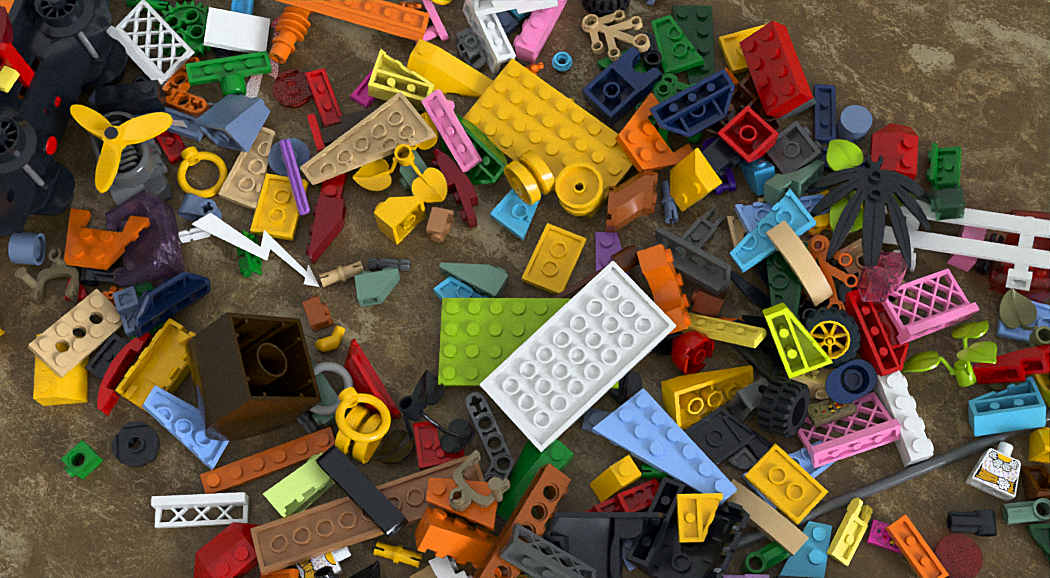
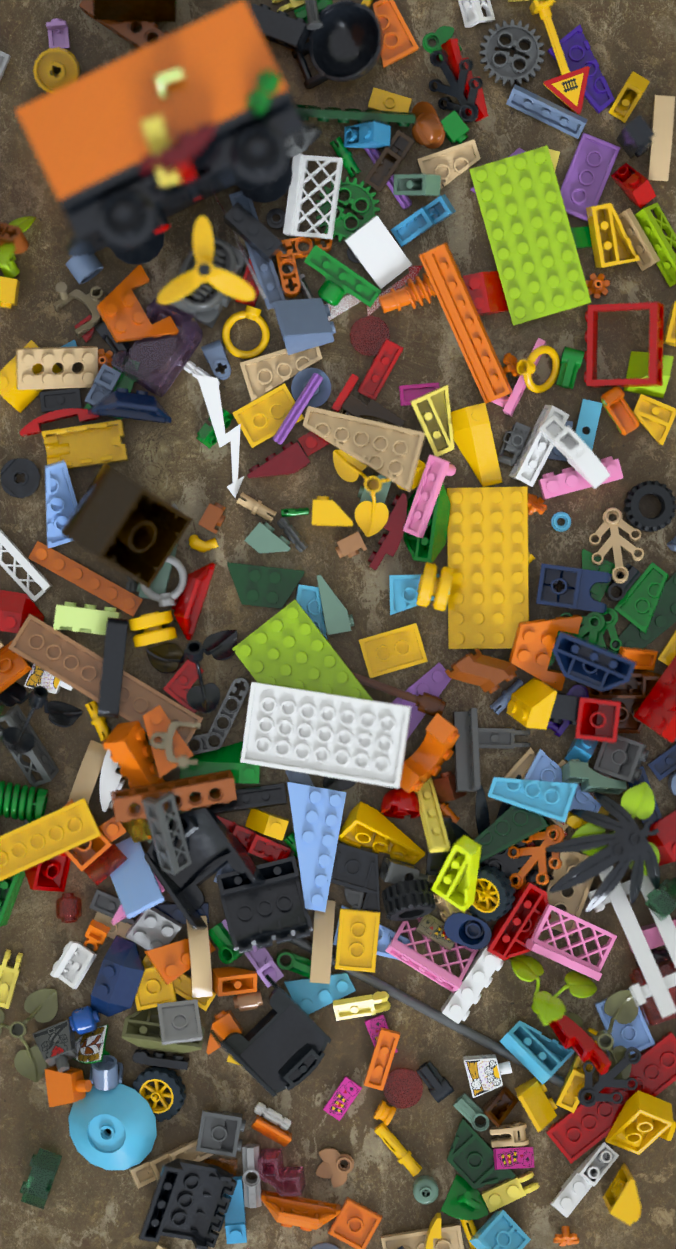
camera: 50 degrees right, 20 degrees up
(349, 399) = (164, 605): yellow piece -> none
(373, 248) = (293, 512): none -> green pin
(409, 319) = (263, 584): none -> dark green wing
(568, 186) = (446, 623): yellow wheel -> none
(583, 473) = (253, 798): none -> black plate
(695, 515) = (283, 898): yellow wing -> none
(800, 262) = (525, 832): tan slope -> none
(881, 280) = (551, 900): clear pink brick -> none

